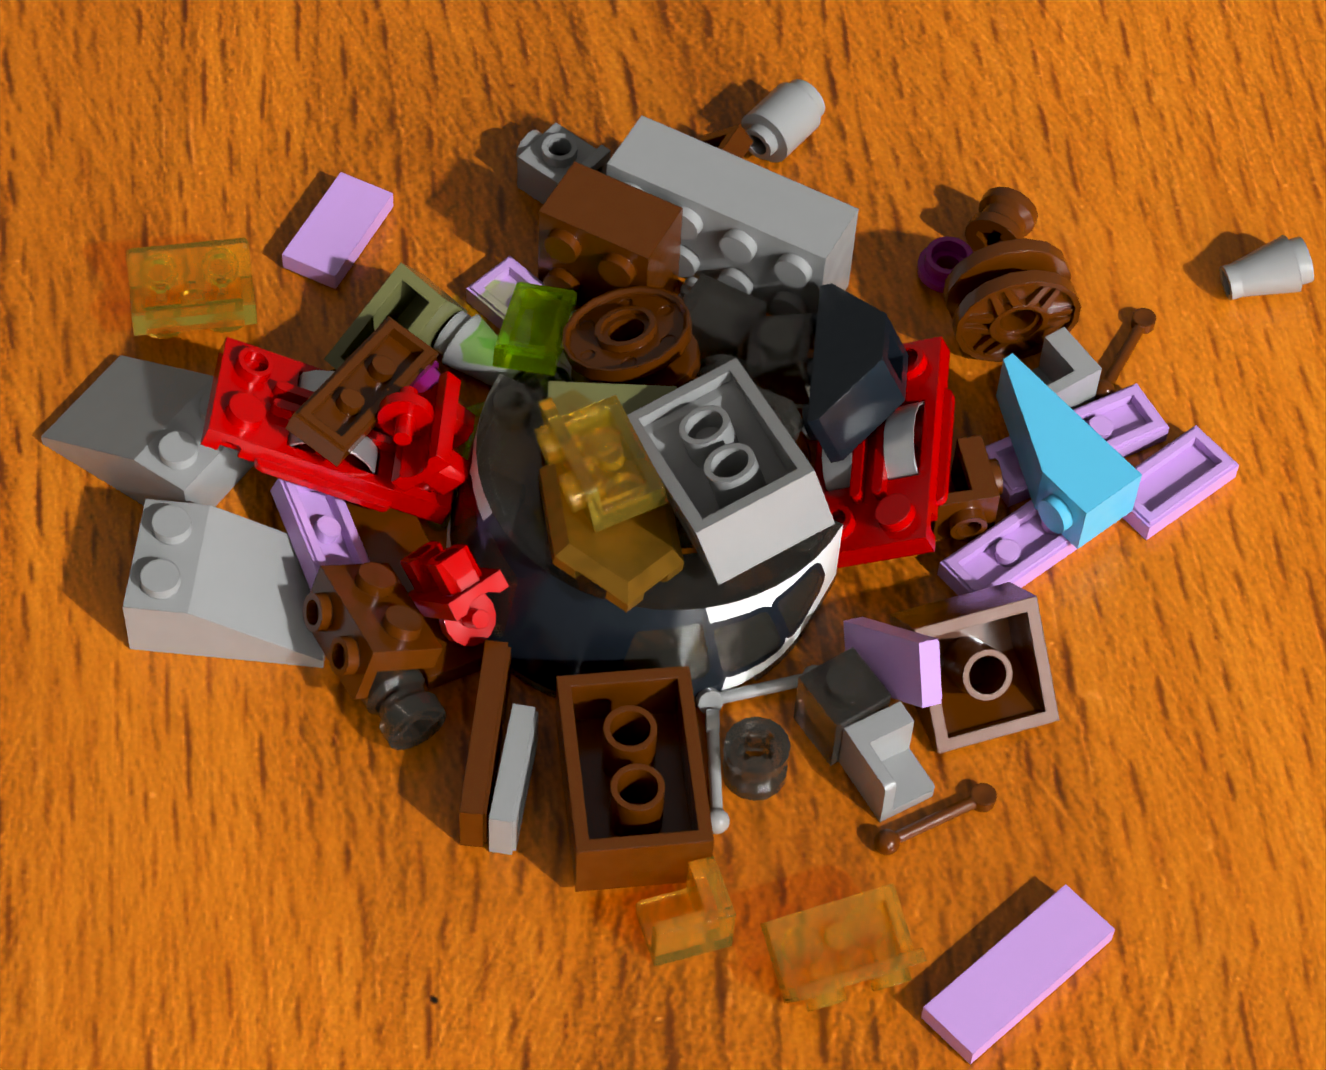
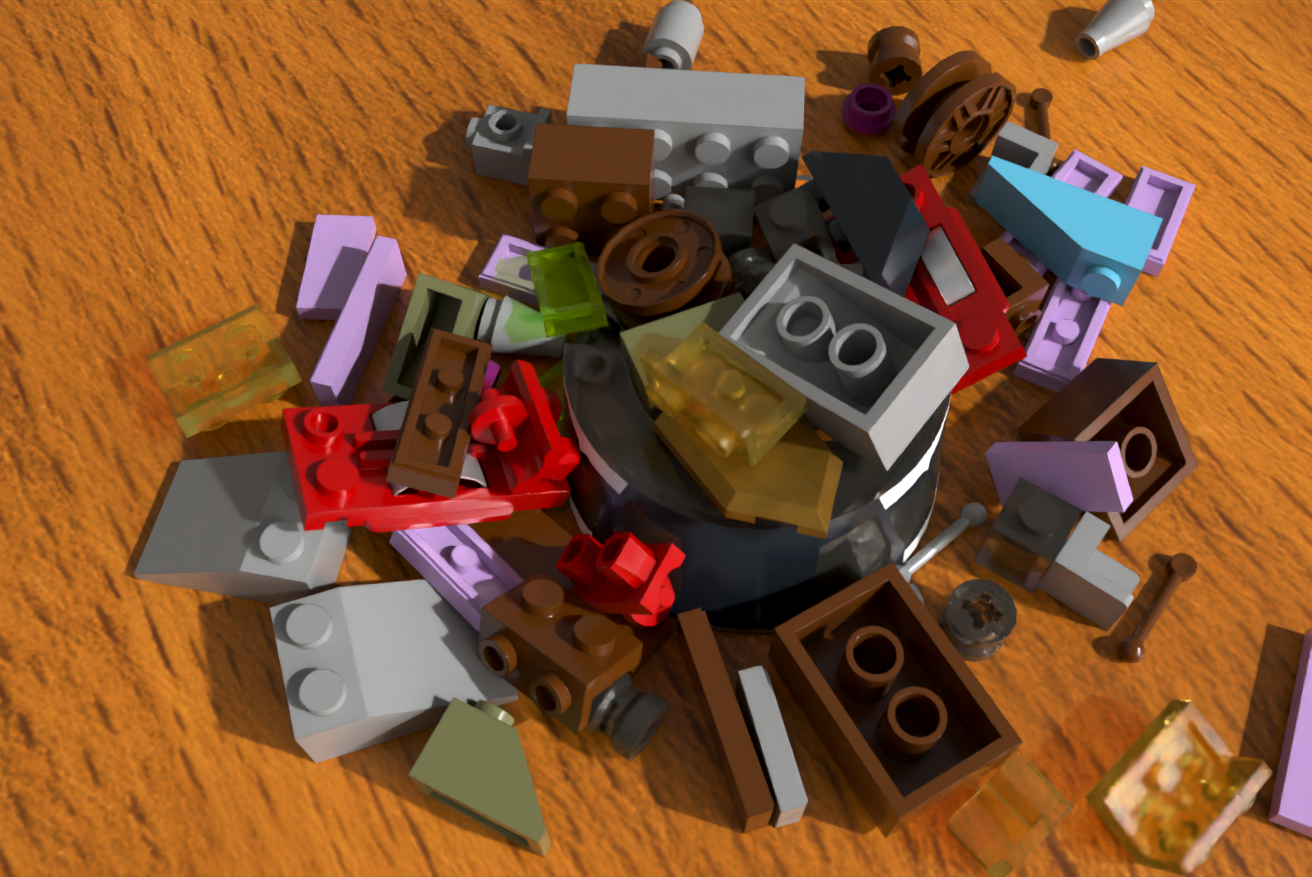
camera: 20 degrees left, 5 degrees up
(262, 703) = (483, 773): none -> olive slope
(334, 290) = (359, 324): none -> lavender tile

